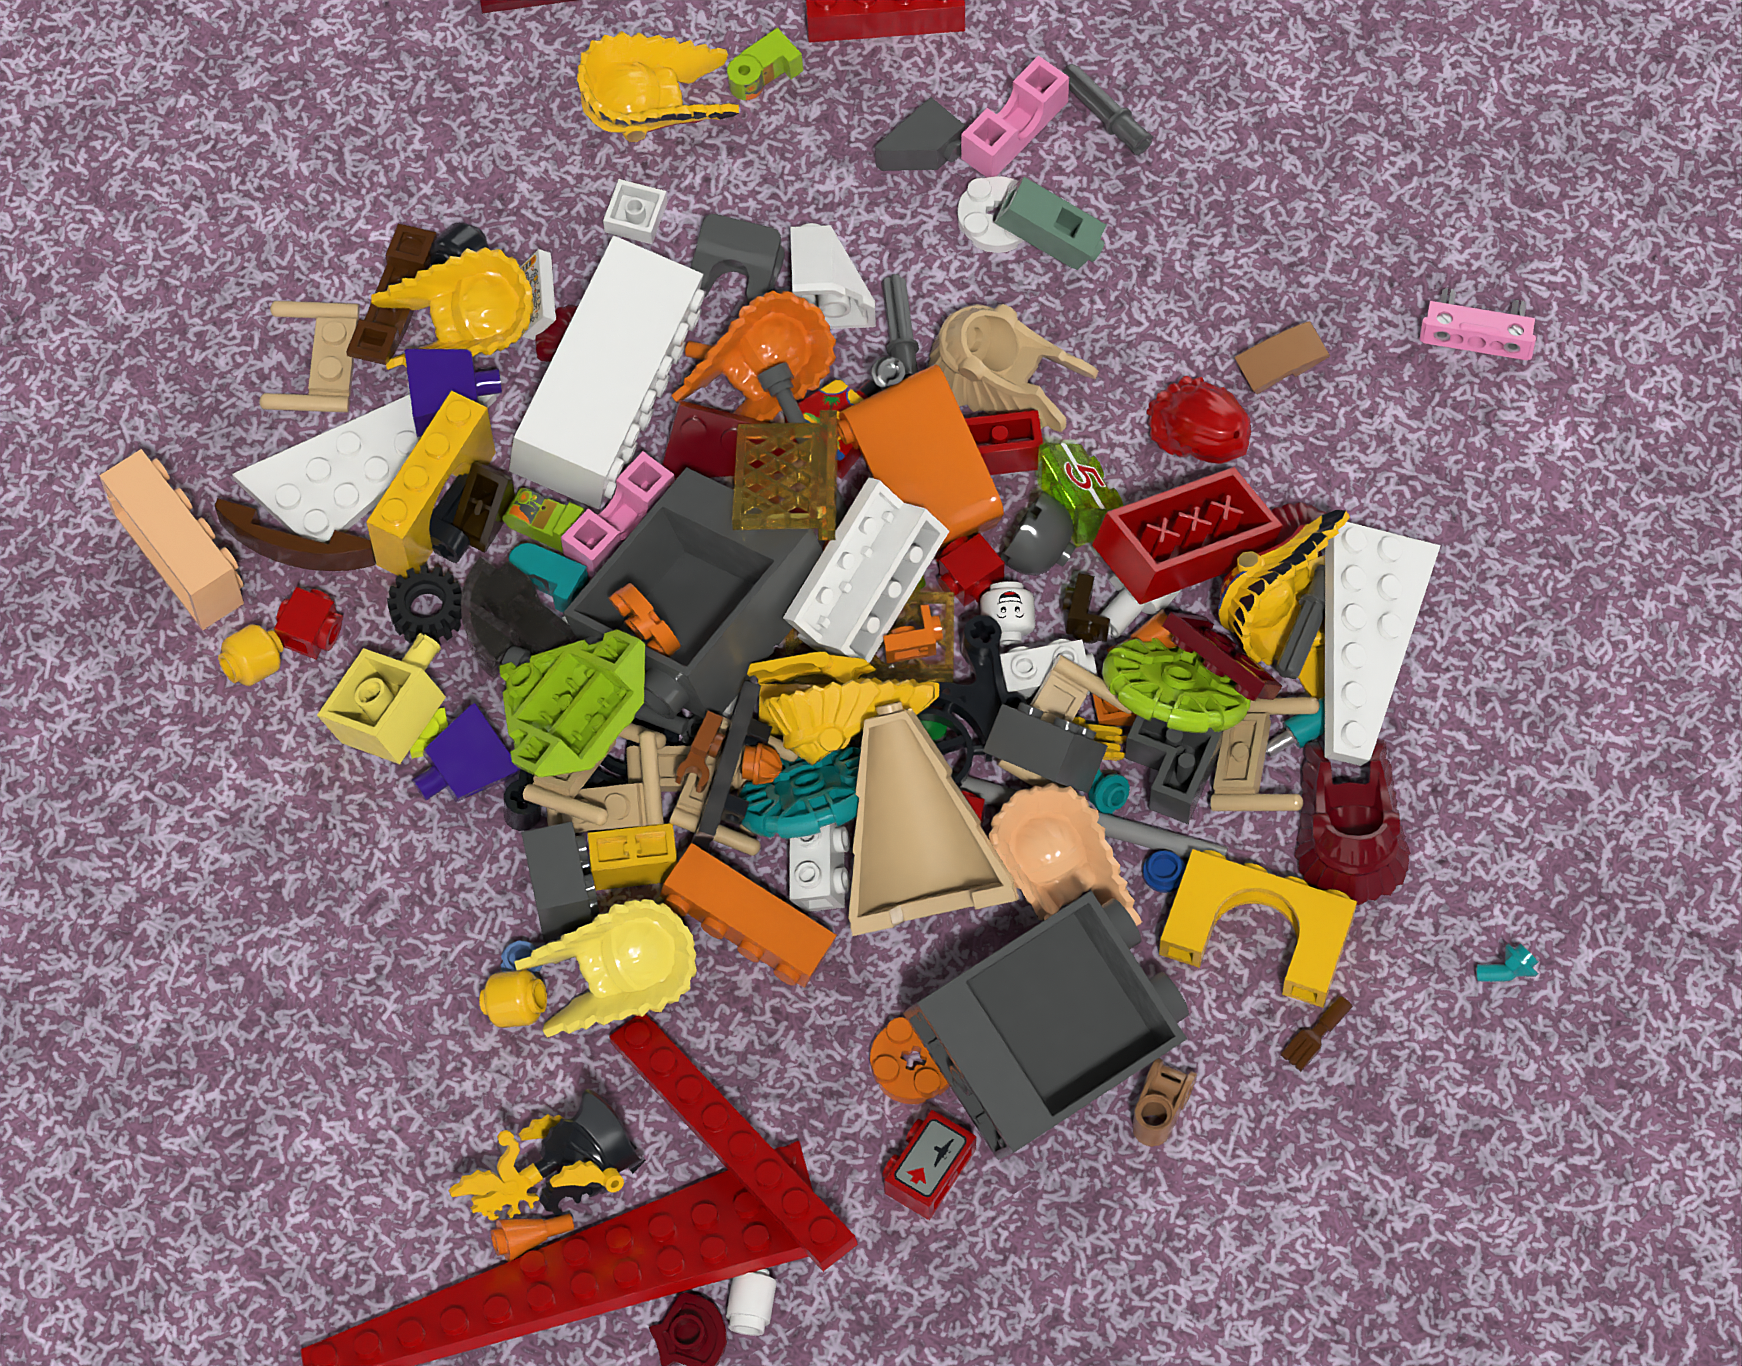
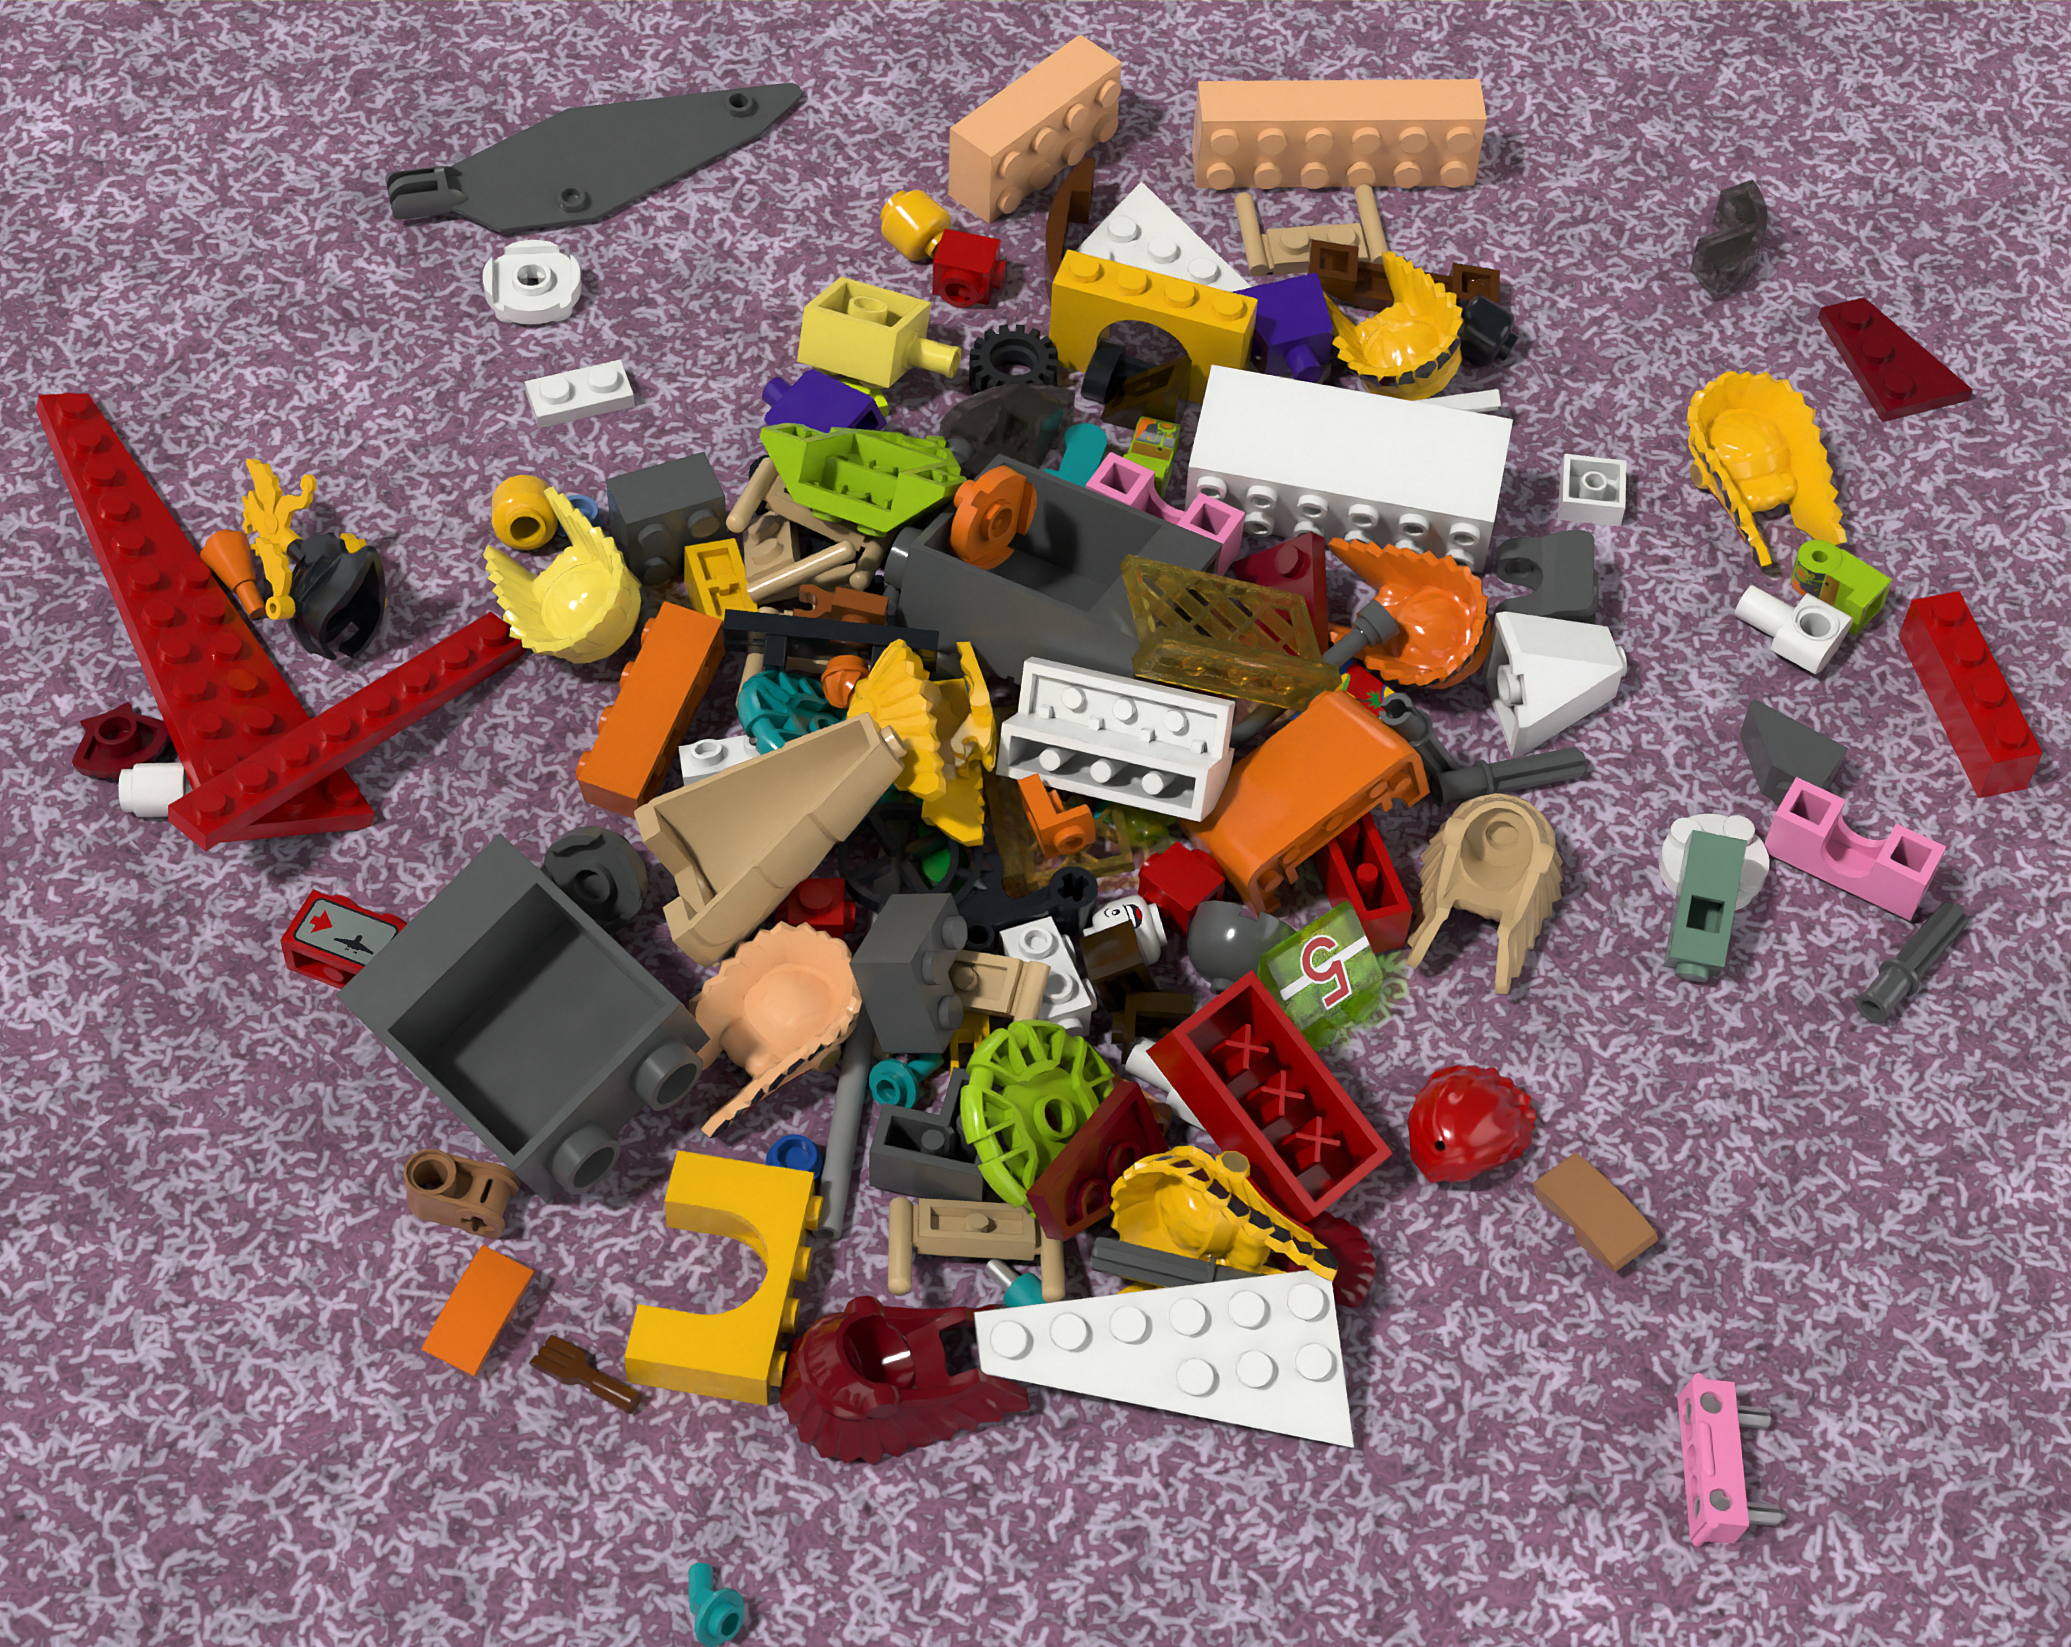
camera: 75 degrees right, 10 degrees down
(103, 907) = (590, 159): none -> dark grey wing
(230, 955) = (537, 304): none -> white plate
(232, 309) = (1337, 133): none -> light nougat brick
(378, 948) = (579, 393): none -> white plate
(388, 34) = (1729, 256): none -> clear smoke brick
(794, 109) = (1801, 634): none -> white piece
(903, 971) = (599, 875): none -> dark grey tile
(1049, 615) = (1116, 964): none -> dark brown slope
(1263, 1094) = (478, 1310): none -> orange slope

